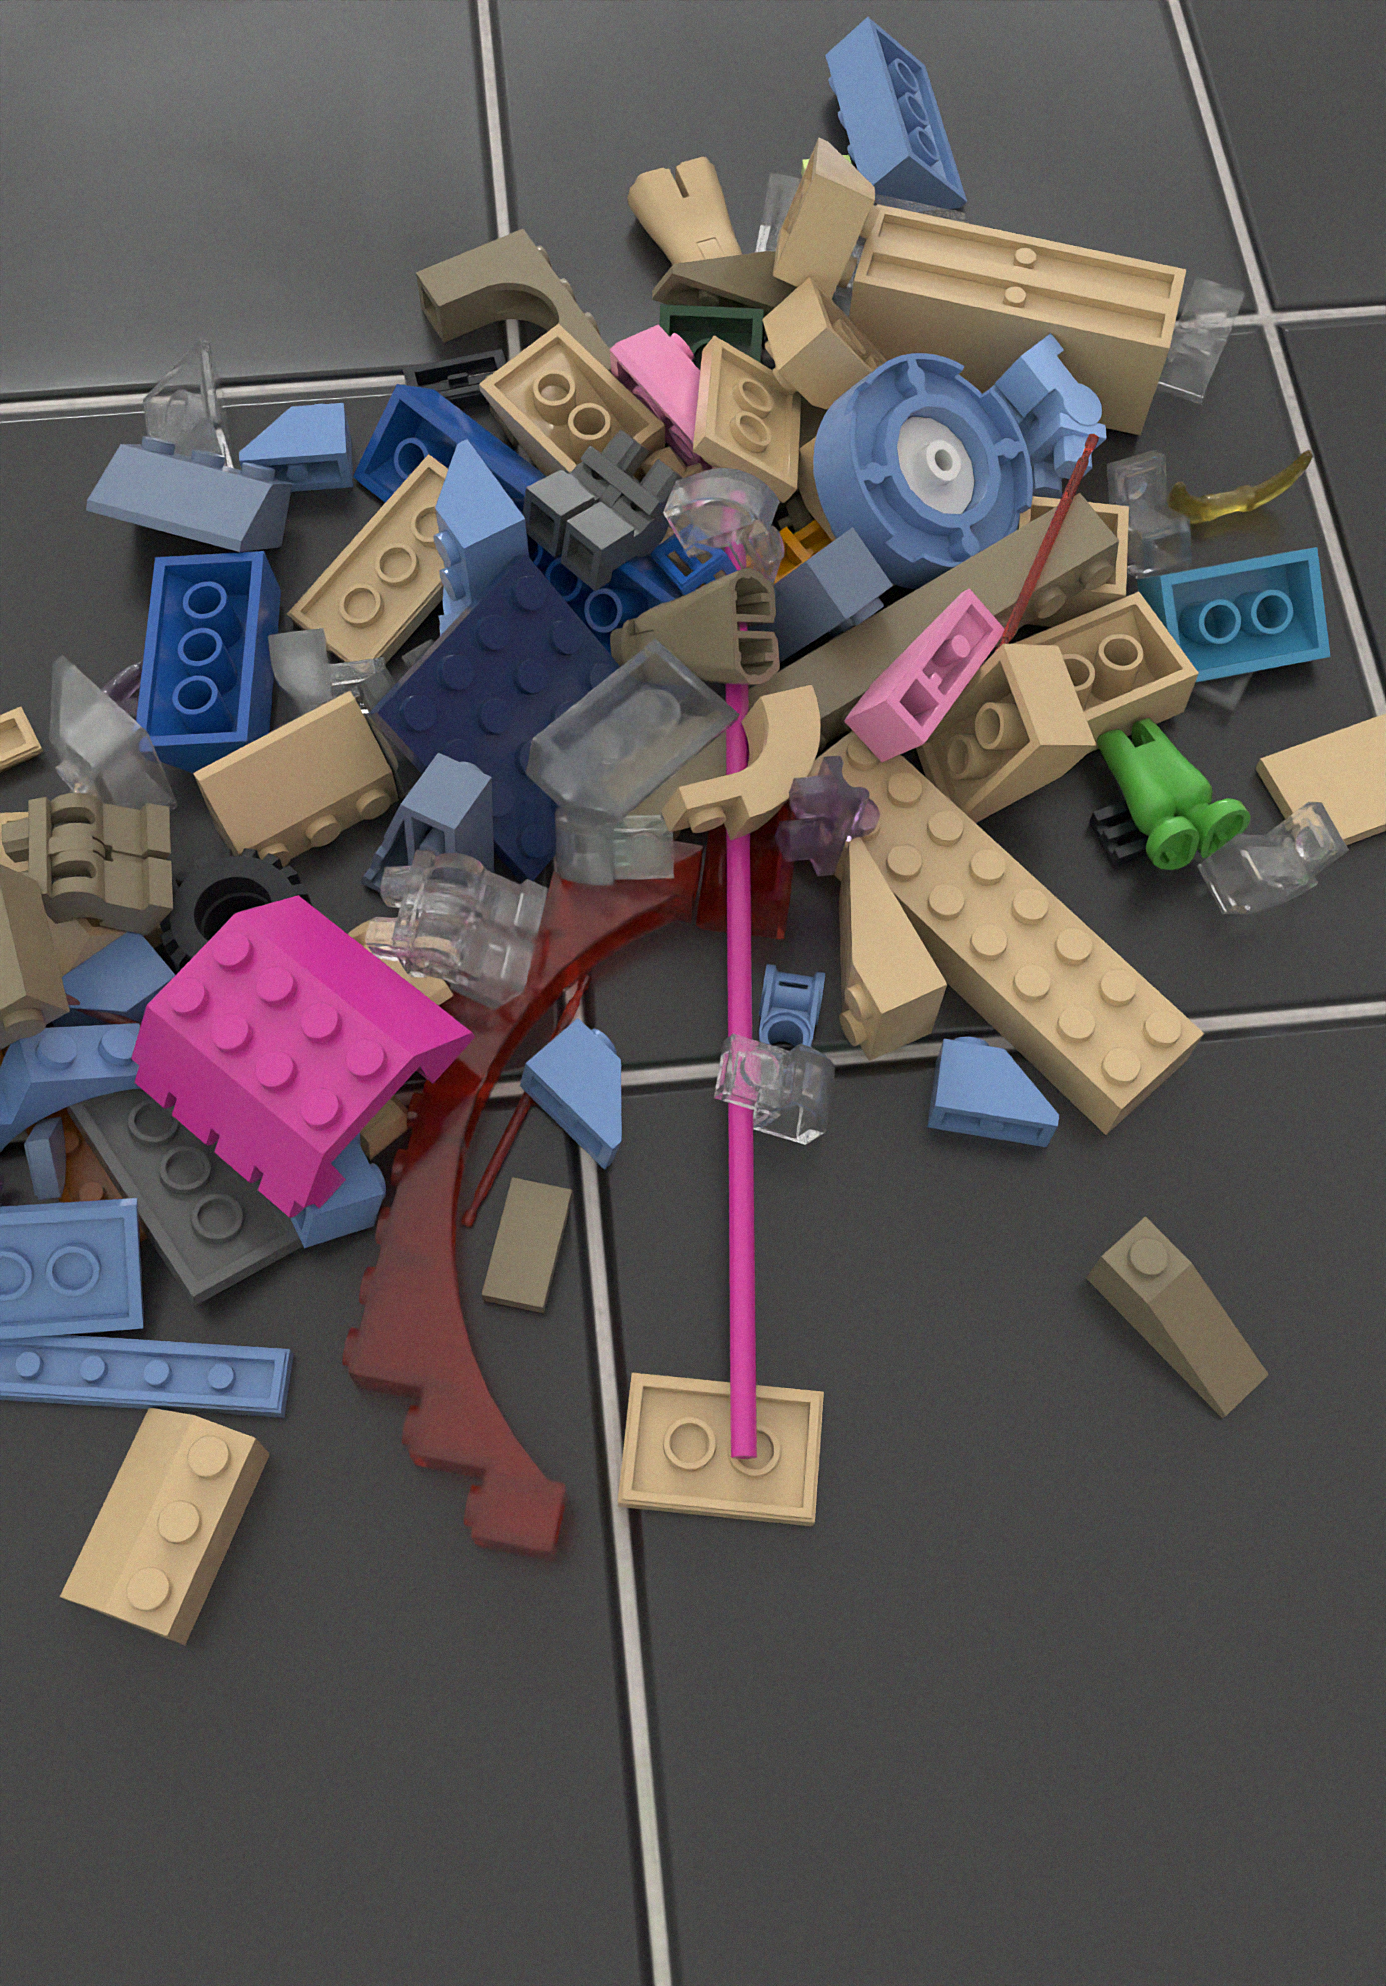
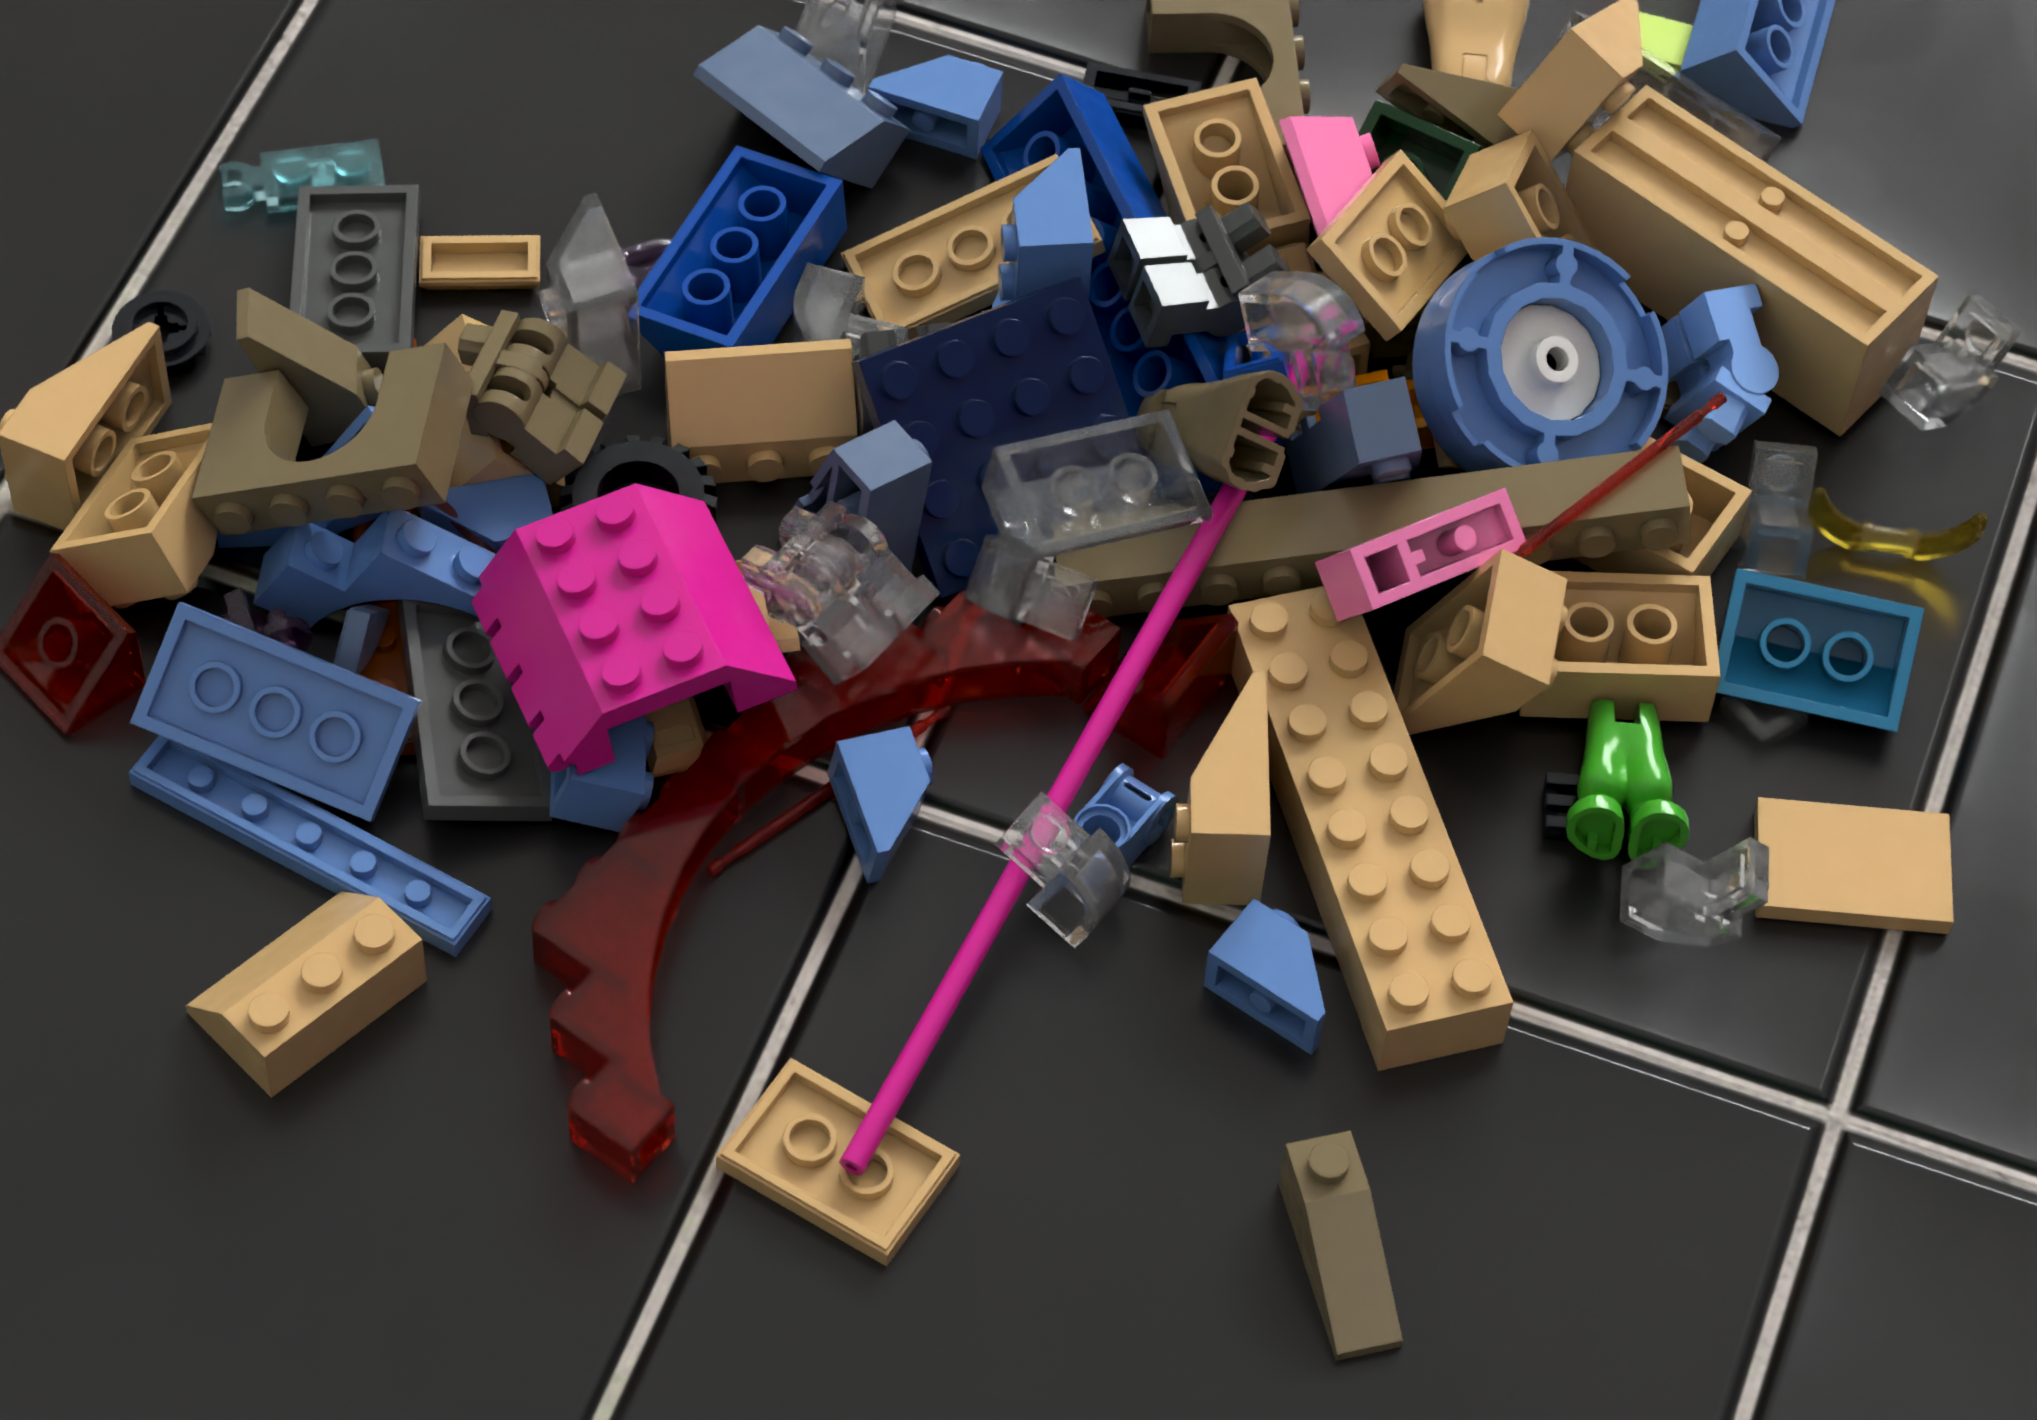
camera: 25 degrees right, 10 degrees down
(527, 1245) = (756, 911): dark tan tile -> none
(782, 746) = (1198, 586): tan arch -> none
(829, 817) = (1248, 641): clear purple hips -> none

